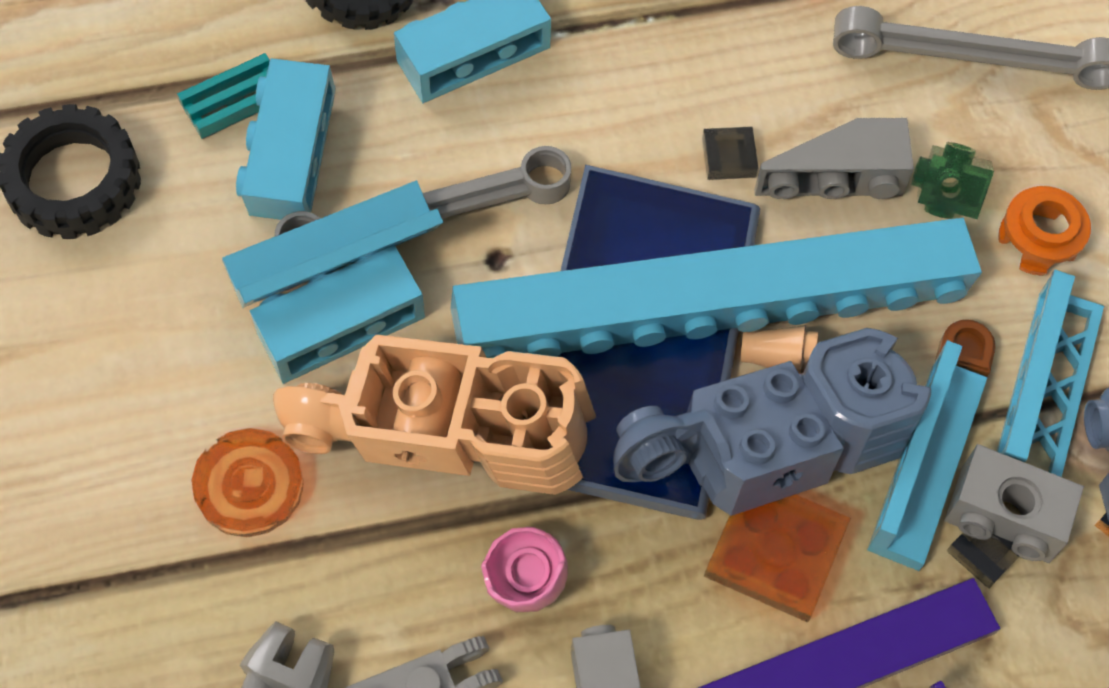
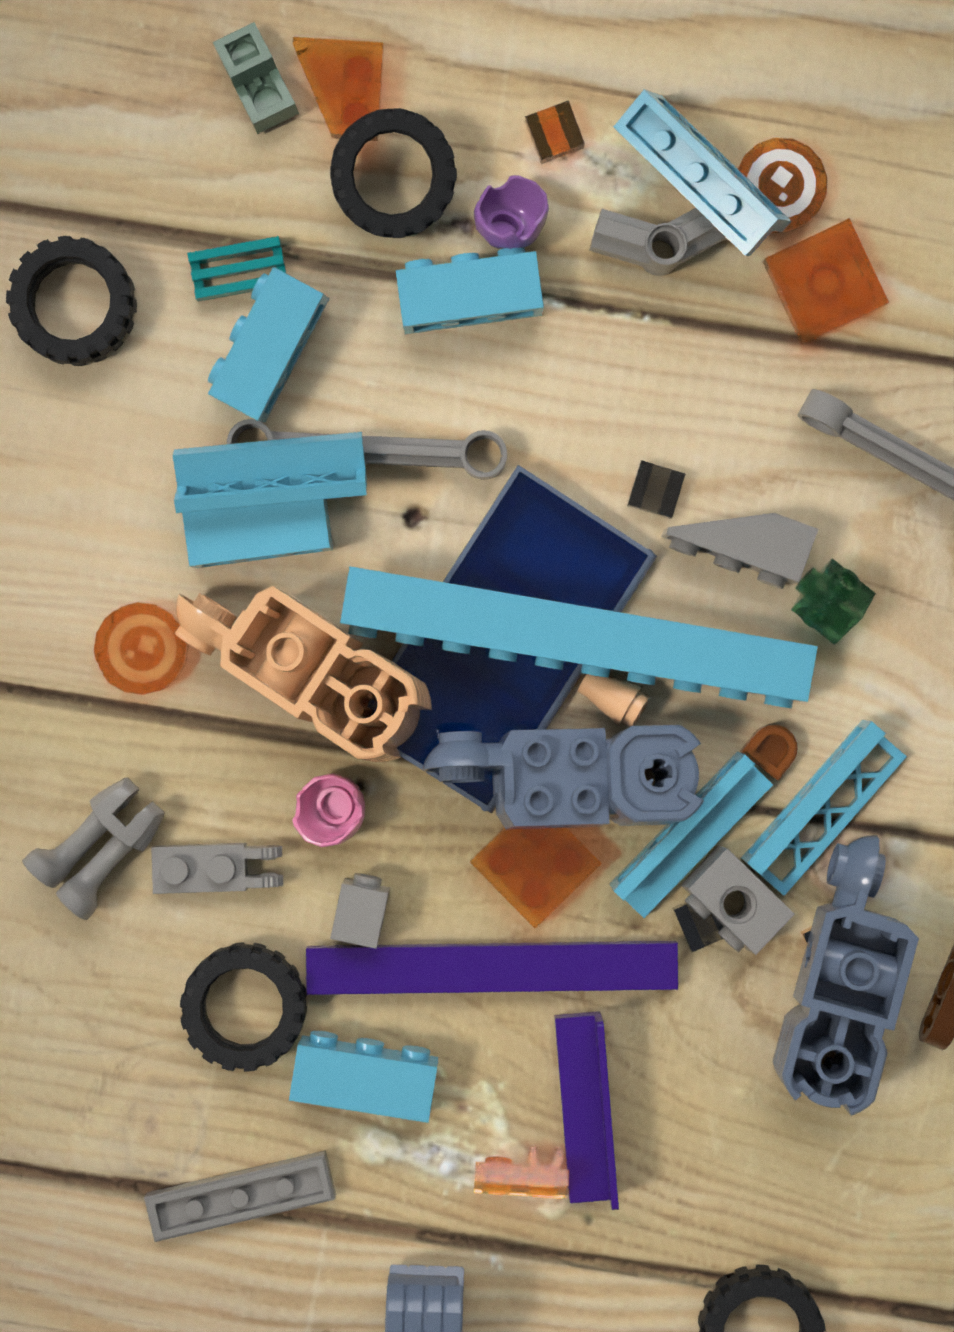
camera: 20 degrees right, 25 degrees up
(1039, 247) = (866, 665): orange piece -> none

